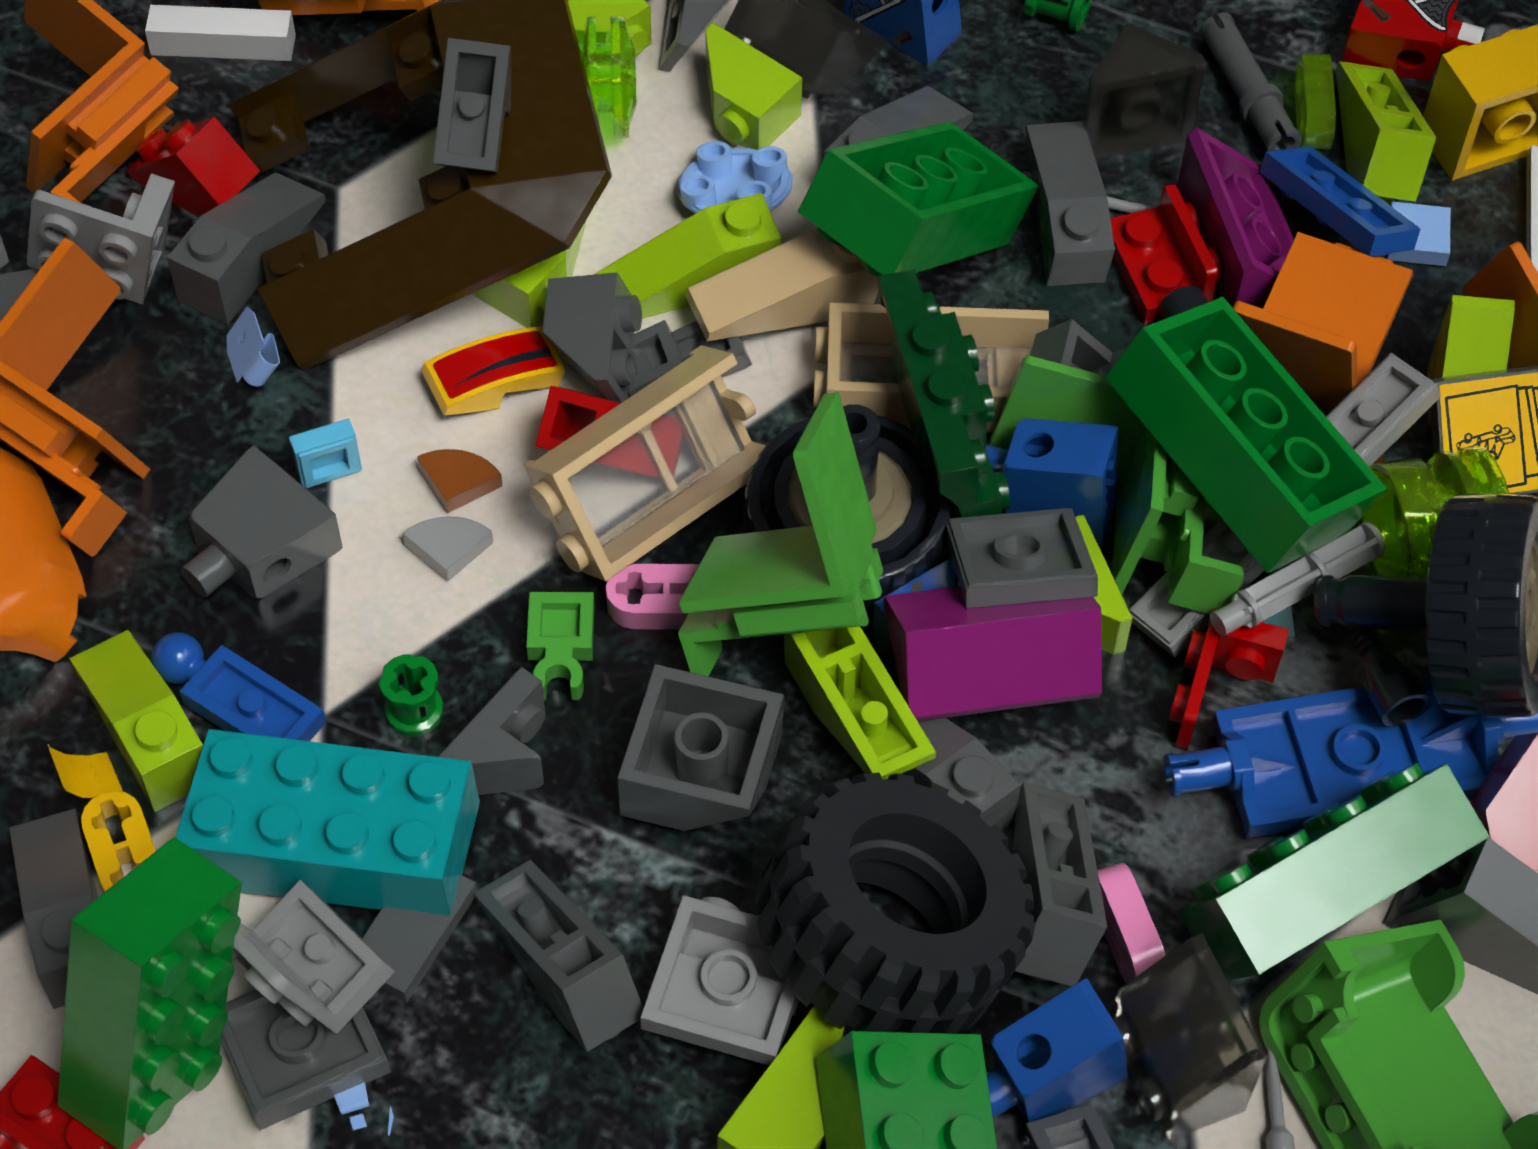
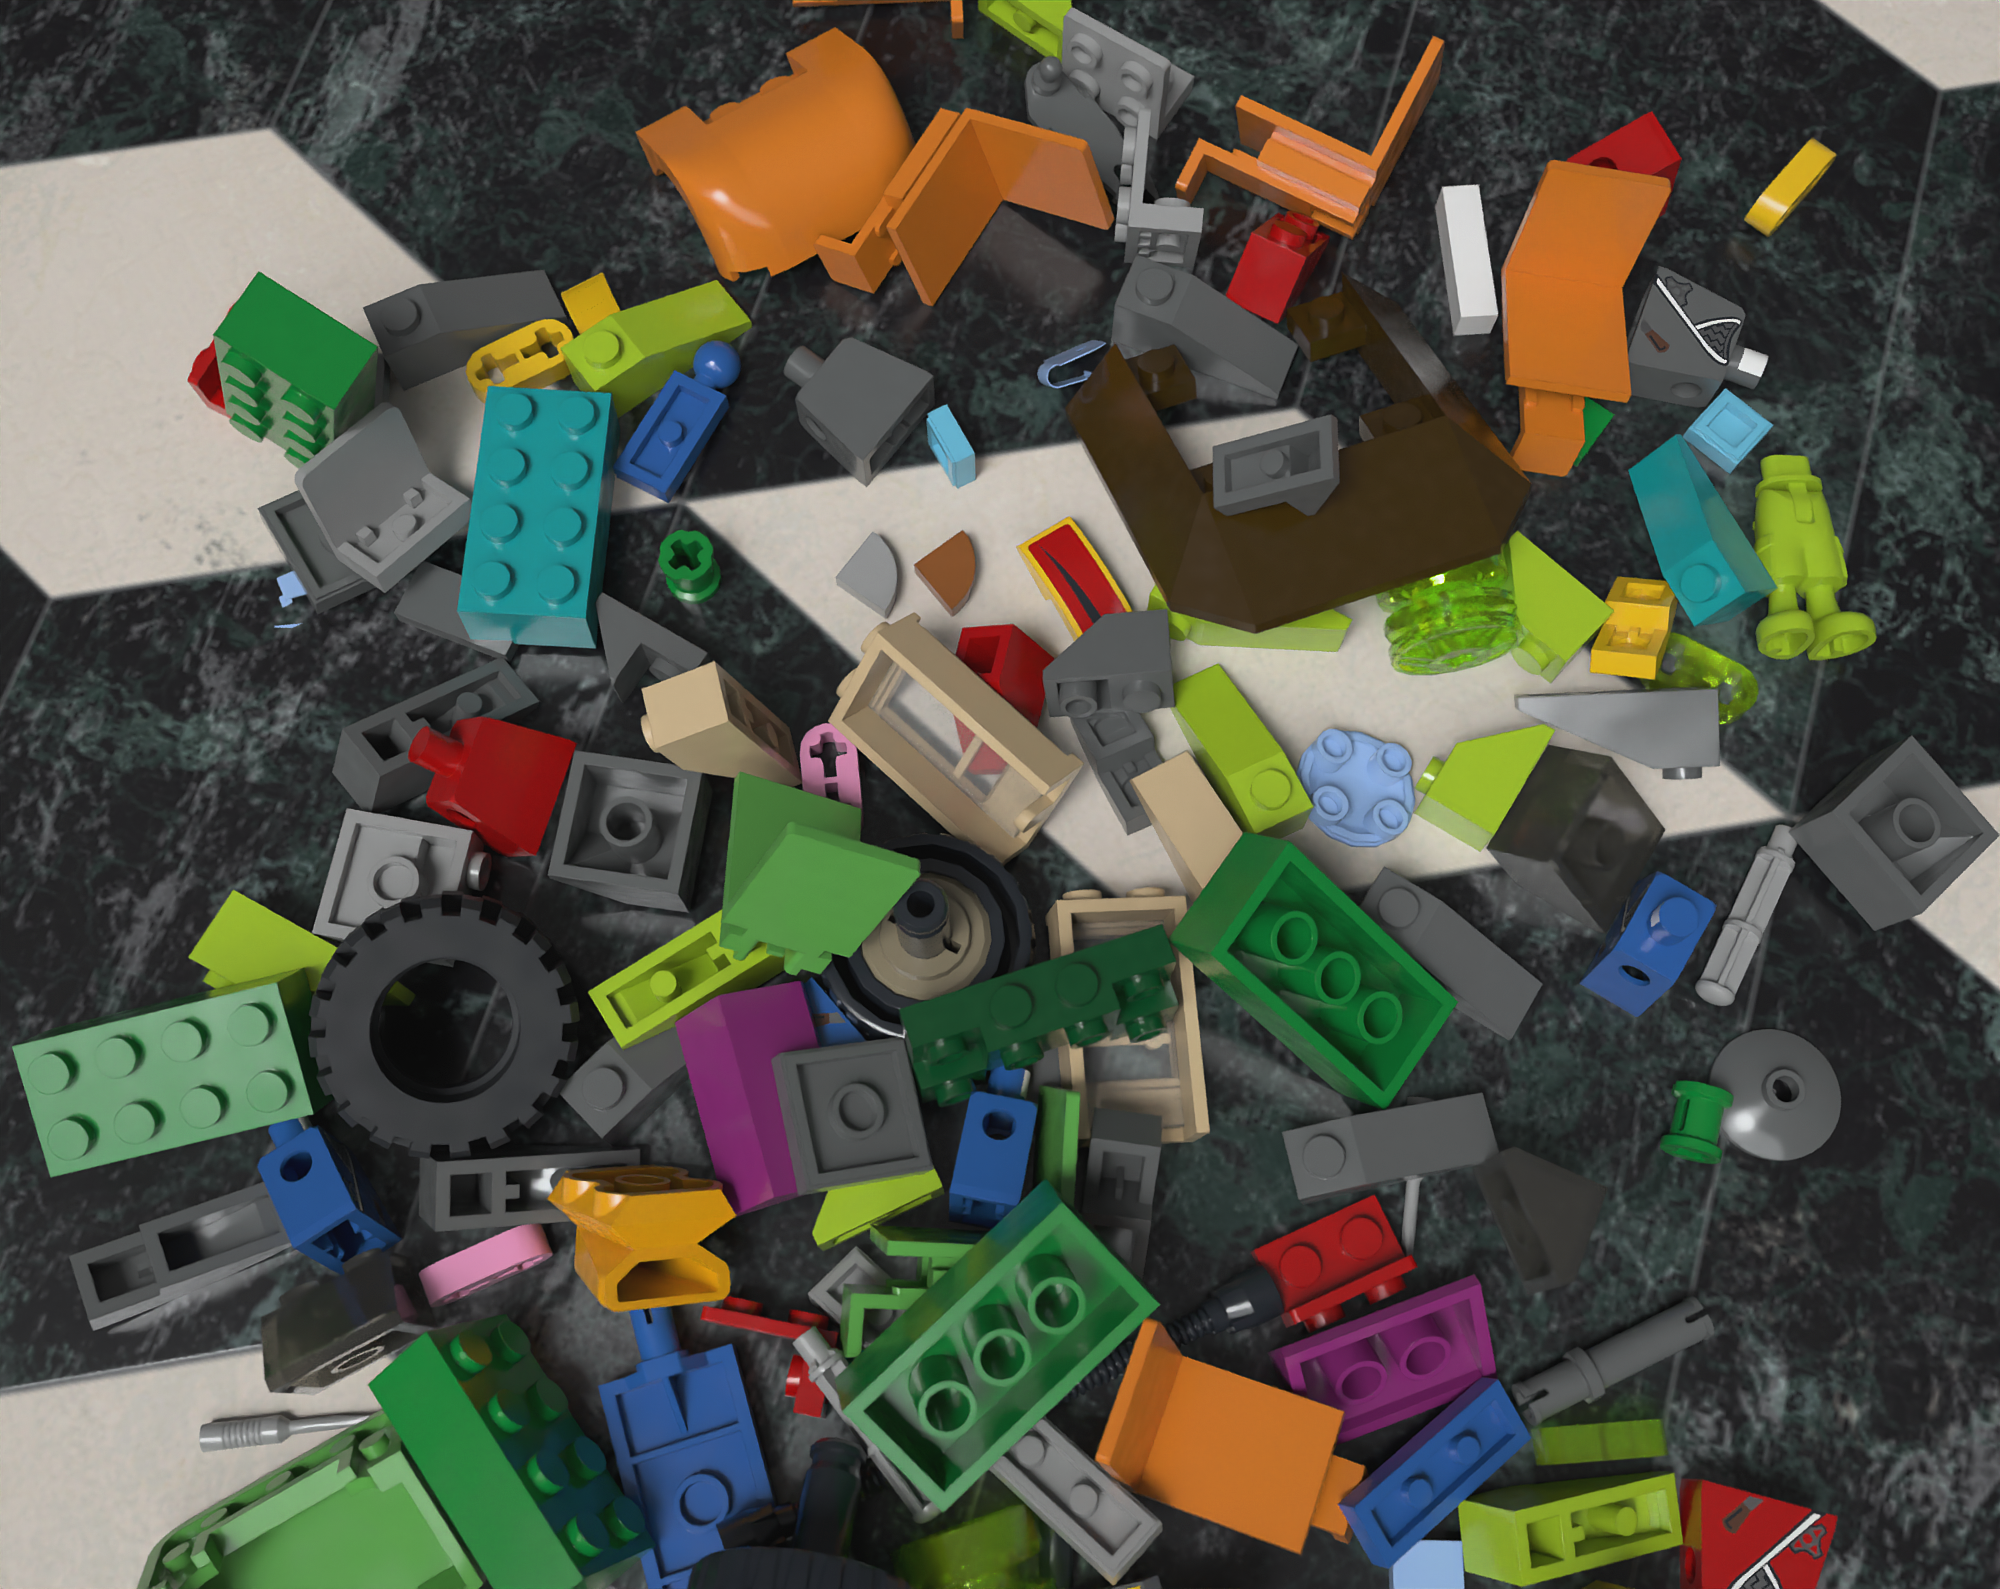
camera: 85 degrees right, 15 degrees up
(560, 636) = (783, 685): bright green plate -> none
(620, 628) = (717, 727): none -> tan slope
(632, 872) = (494, 779): none -> red torso
(1116, 755) = (643, 1233): none -> light orange piece

